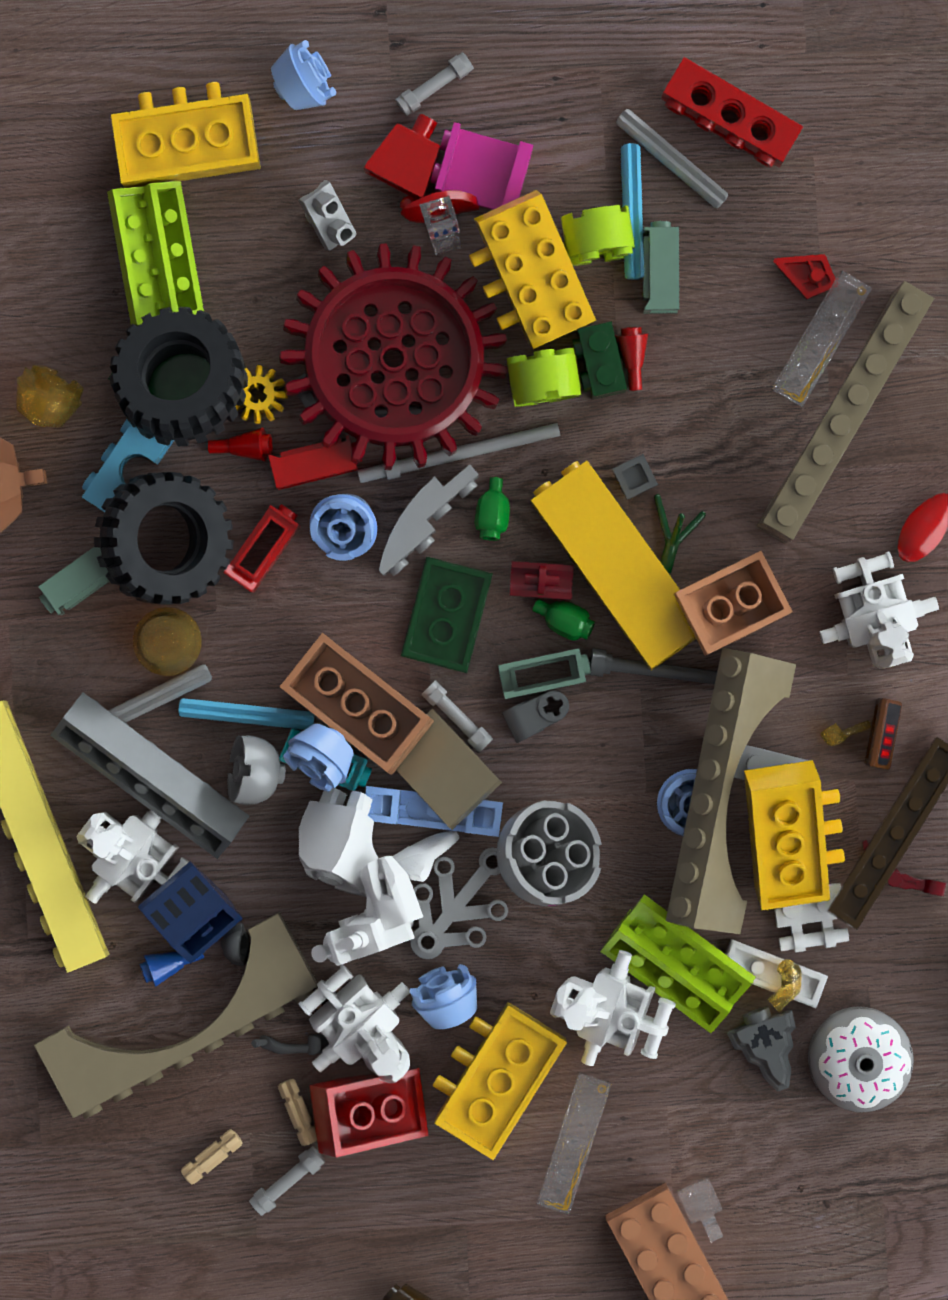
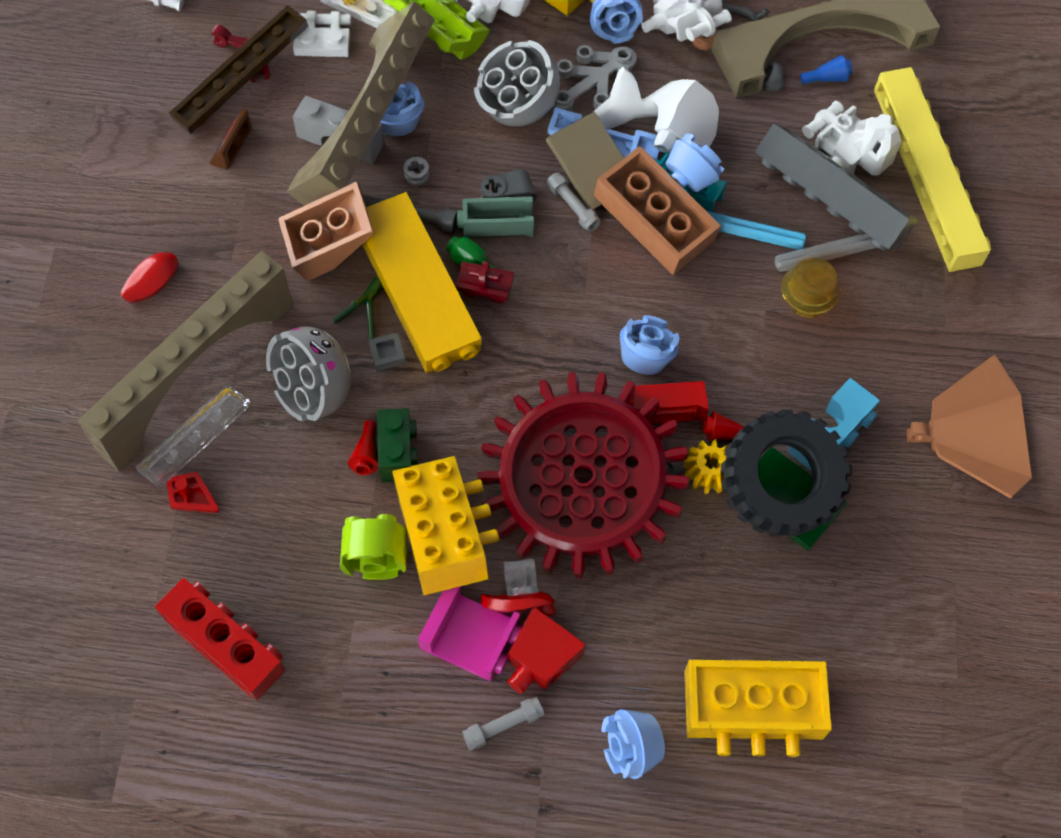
camera: 170 degrees left, 25 degrees down
(46, 397) = (905, 490): clear yellow cone -> none
(74, 583) = (880, 345): sand green window -> none
(154, 249) = (795, 598): lime brick -> none
(190, 912) = (809, 91): dark blue slope -> none
(206, 544) = (817, 380): black tyre -> none
(254, 770) = (748, 178): light grey cylinder -> none
(283, 517) = (705, 366): red window -> none
(327, 216) = (625, 606): light grey hips -> none
(385, 921) = (669, 53): white piece -> none
(413, 529) = (584, 344): light grey slope -> none
(446, 614) = (569, 277): dark green tile -> none
(463, 451) = (507, 397): light grey bar -> none
(492, 511) = (516, 344): green plant -> none
(544, 377) = (449, 431): lime brick -> none
(633, 198) = (334, 587): medium azure axle -> none
(654, 718) = (422, 166): none -> light grey bush
(661, 268) = (322, 515): sand green window -> none
(671, 158) = (289, 616): light grey axle -> none
(698, 436) = (316, 364): none -> light grey cylinder
(790, 834) = (321, 67): yellow piece -> none
(834, 735) = (267, 143): clear yellow hand -> none
(877, 612) = (209, 215): white piece -> none

